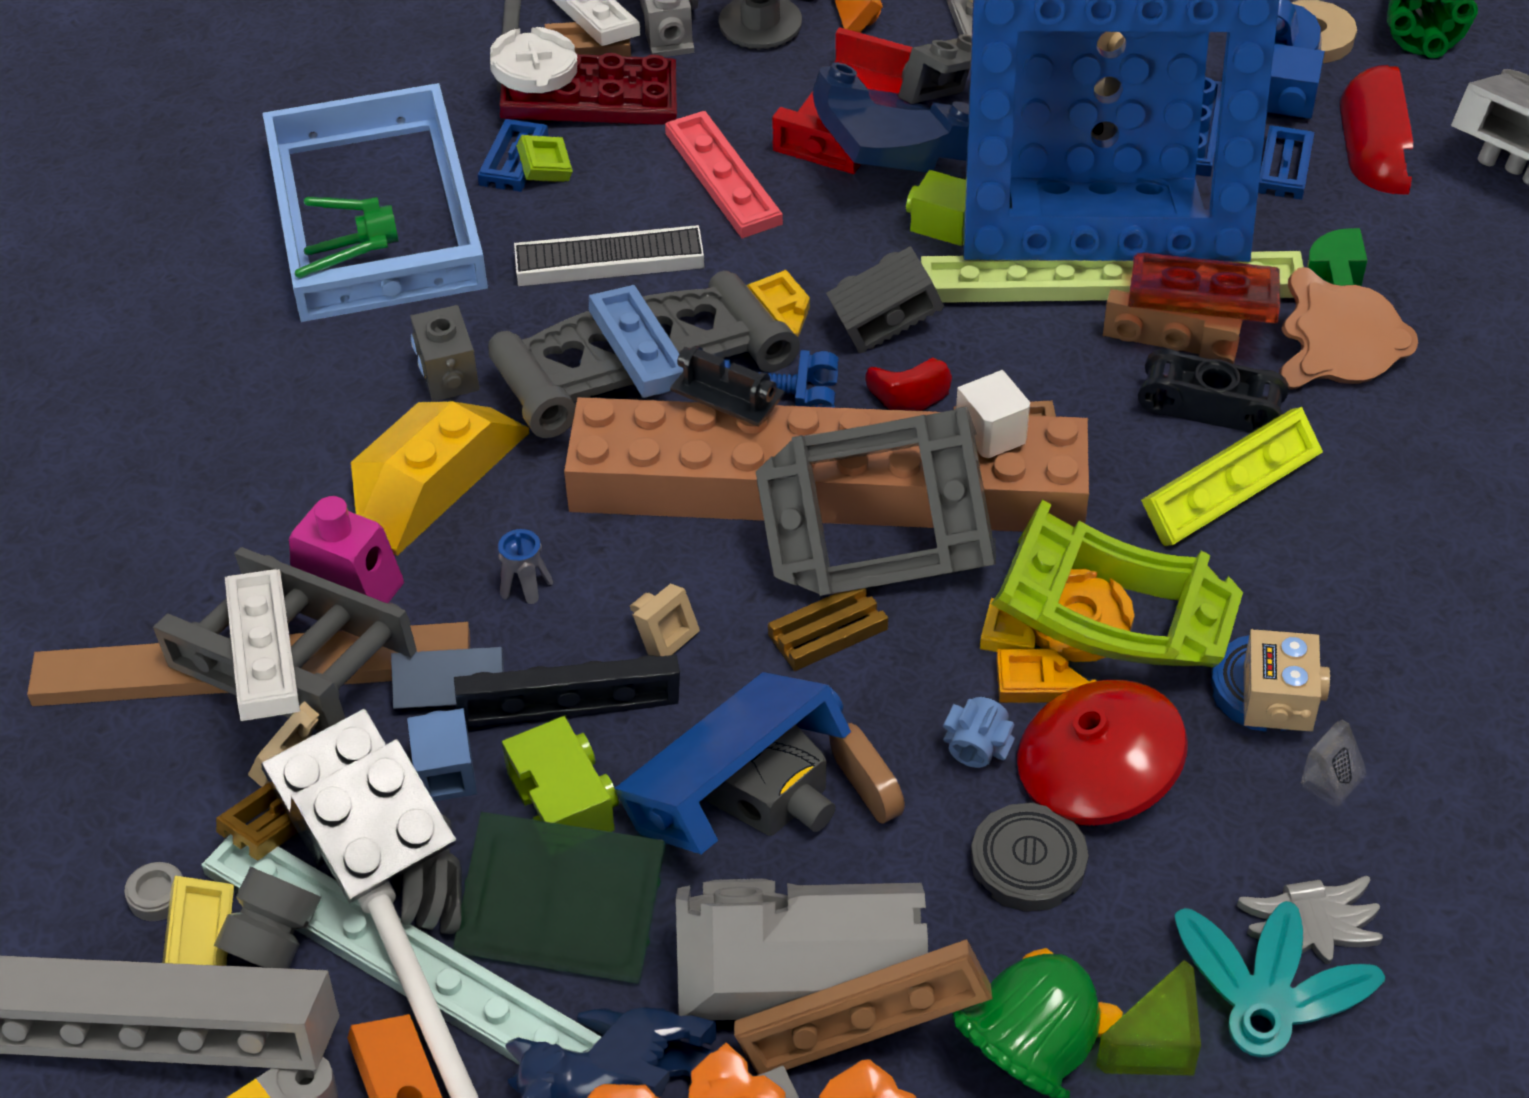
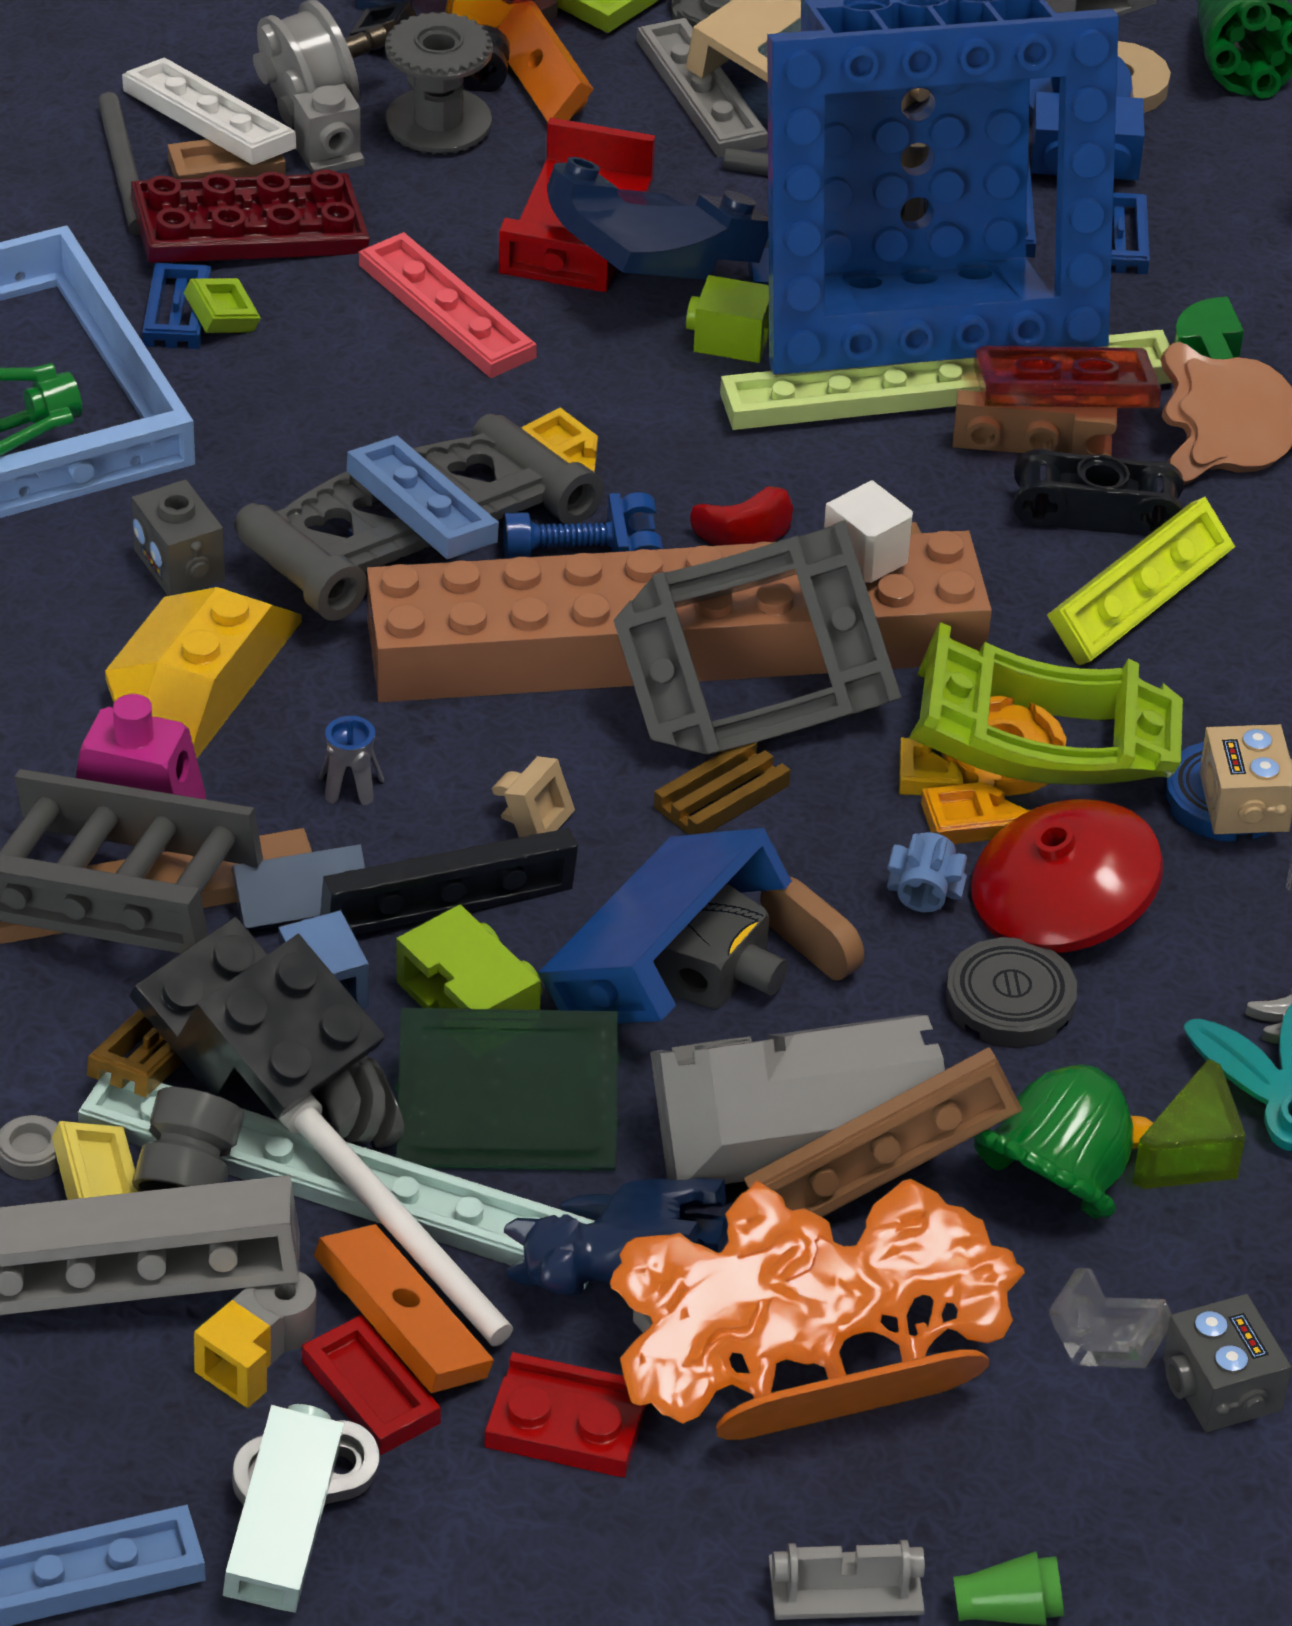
camera: 15 degrees left, 5 degrees down
(261, 645) = (97, 859): white tile -> none
(294, 731) = (152, 958): tan tile -> none
(533, 60) = (180, 187): white tile -> none
(608, 255) = (336, 412): tile -> none
(729, 390) = (570, 539): black hinge -> none
(885, 299) = (694, 427): dark grey brick -> none
(936, 70) = (689, 153): dark grey bracket -> none
(1377, 129) = (1219, 184): red brick -> none

